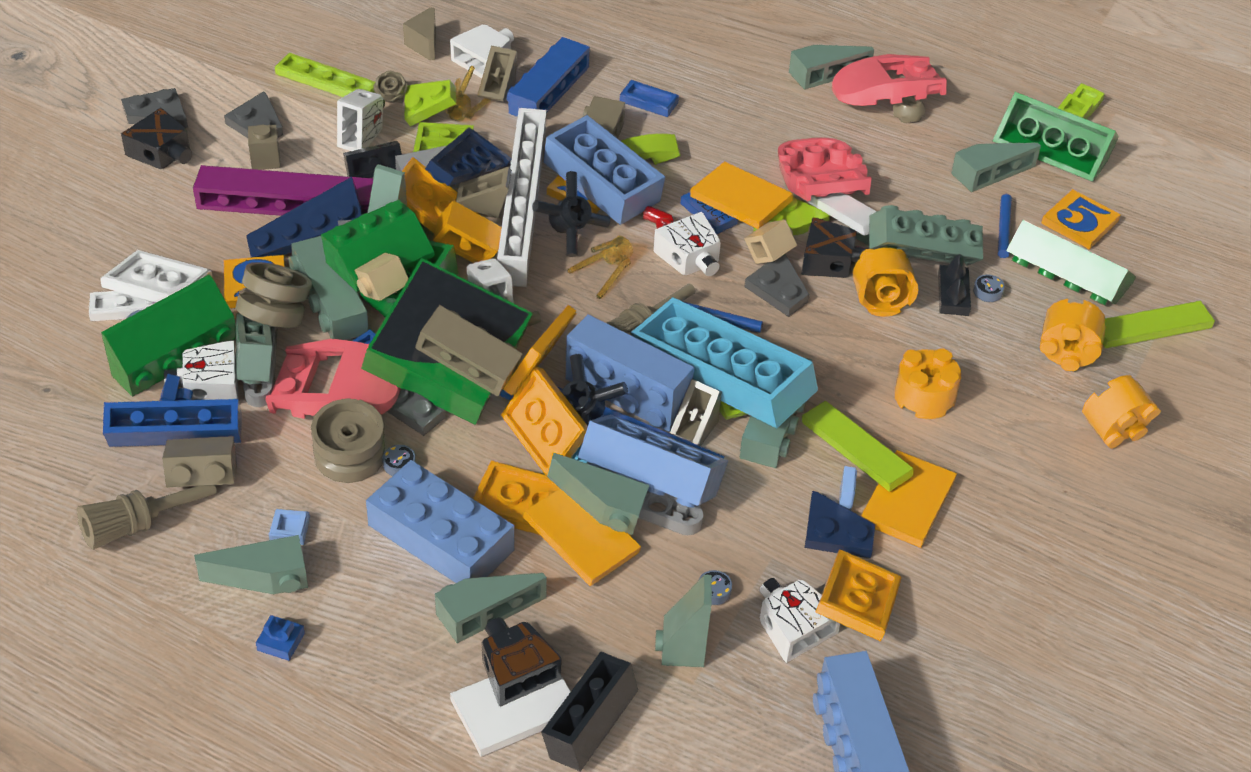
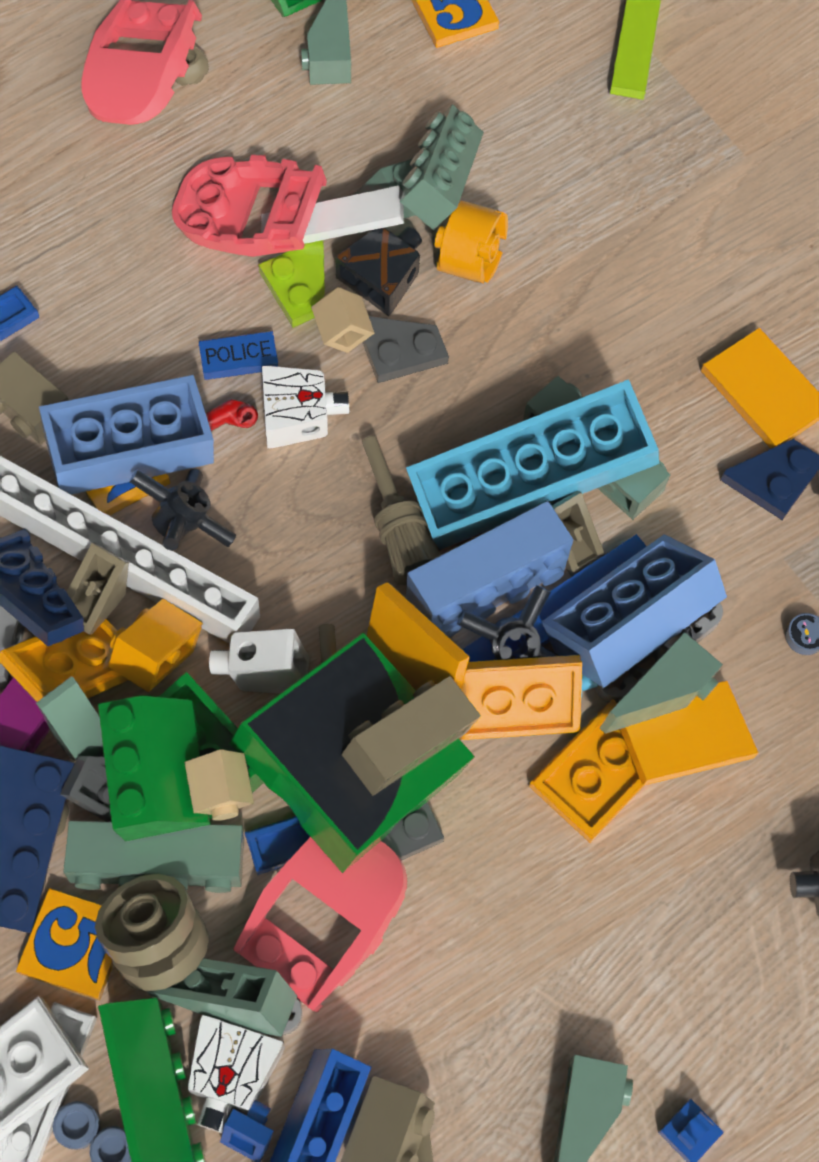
camera: 65 degrees left, 20 degrees up
(289, 523) = (525, 1058): light blue tile -> none
(348, 440) = (435, 961): dark tan wheel -> none
(397, 457) = (478, 887): sand blue tile -> none
(440, 524) = (613, 882): medium blue brick -> none
(474, 602) = (742, 891): sand green slope -> none
(614, 252) = (263, 493): clear yellow plant -> none
(655, 146) = (96, 363): lime slope -> none
(736, 320) = (422, 429): blue bar -> none
(741, 195) = (248, 309): light orange tile -> none
(820, 63) = (60, 104): sand green slope -> none
(848, 487) = (739, 439): light blue tile -> none
(857, 446) = (699, 394): lime tile -> none
(927, 382) = (631, 283): light orange brick -> none
(954, 288) = (499, 184): black tile -> none
(988, 288) = (511, 151): sand blue tile -> none
(1004, 225) = (424, 82): blue bar -> none
(1069, 262) = (524, 58): slope -> none
(1073, 334) = (639, 116): light orange brick -> none
(1120, 411) = (761, 138): light orange brick -> none

